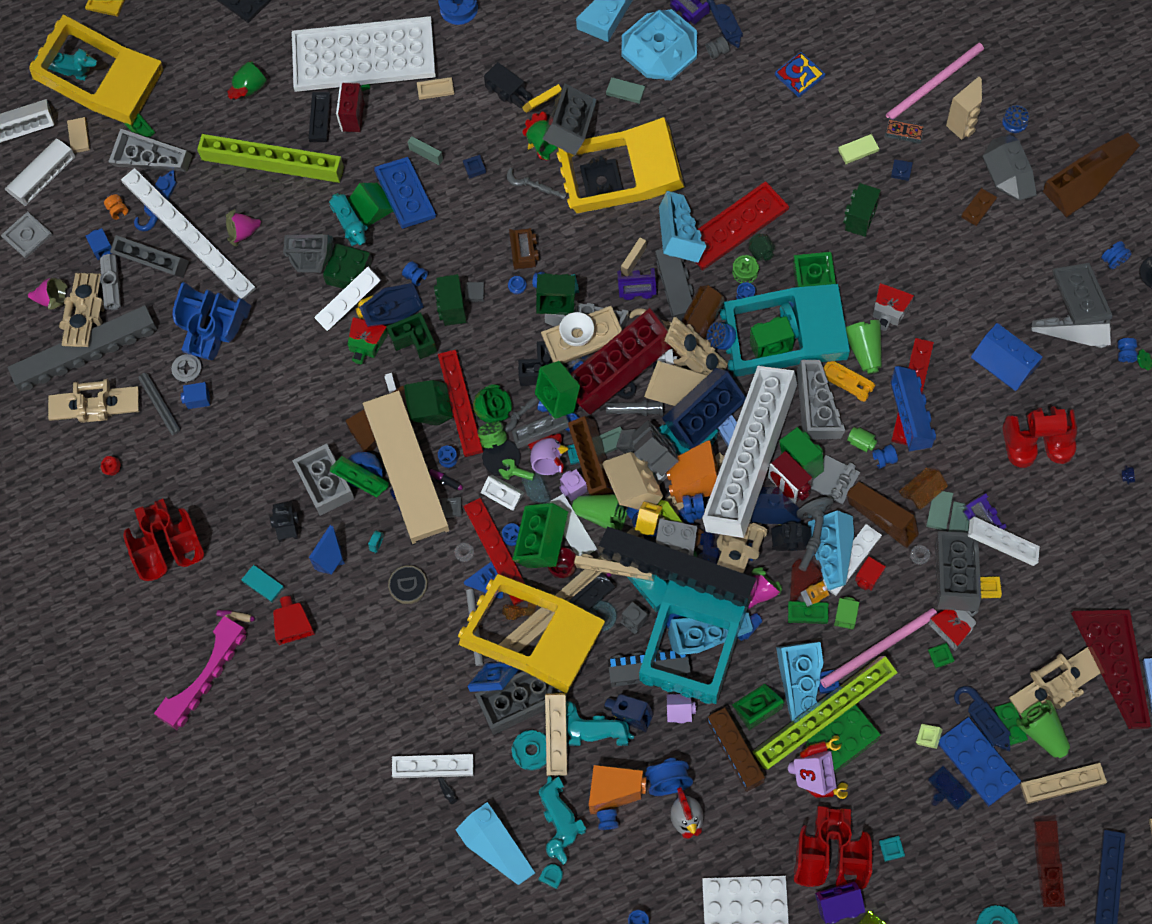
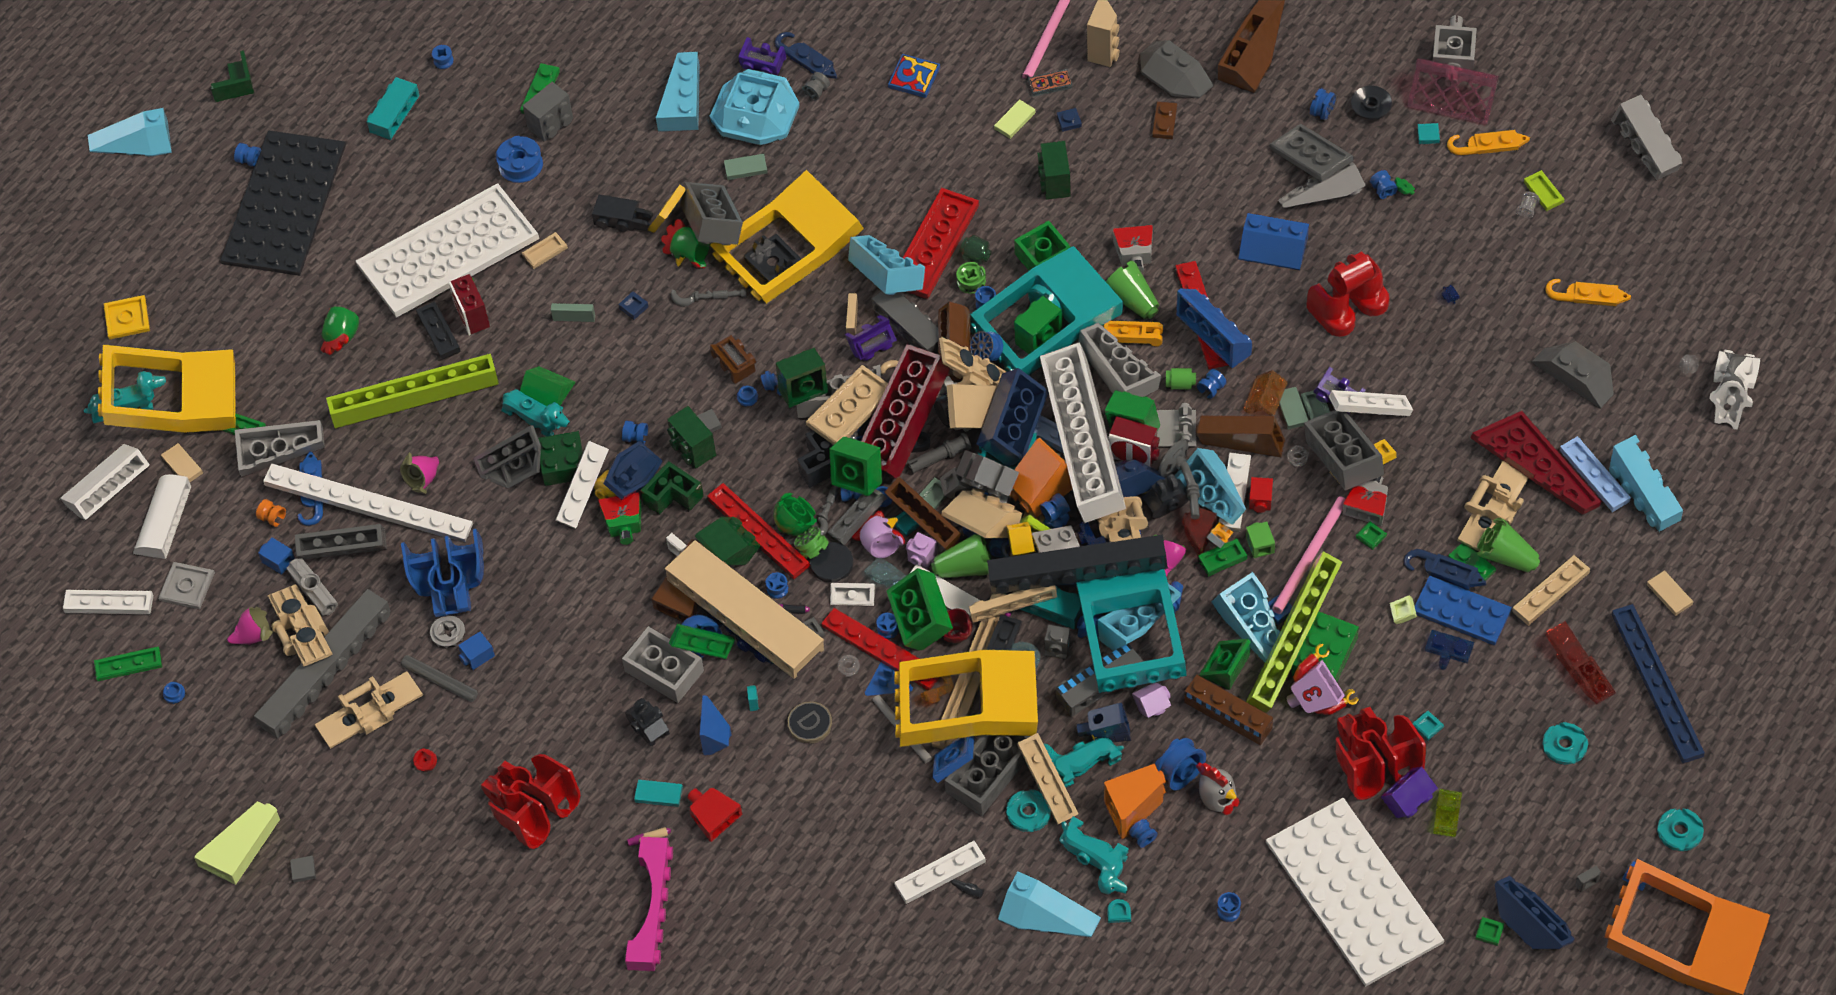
camera: 30 degrees left, 10 degrees down
(404, 192) = (576, 361): blue plate -> none
(515, 471) = (853, 566): bright green bar -> none
(576, 321) = (840, 392): white piece -> none
(1015, 119) = (1152, 26): blue wheel -> none

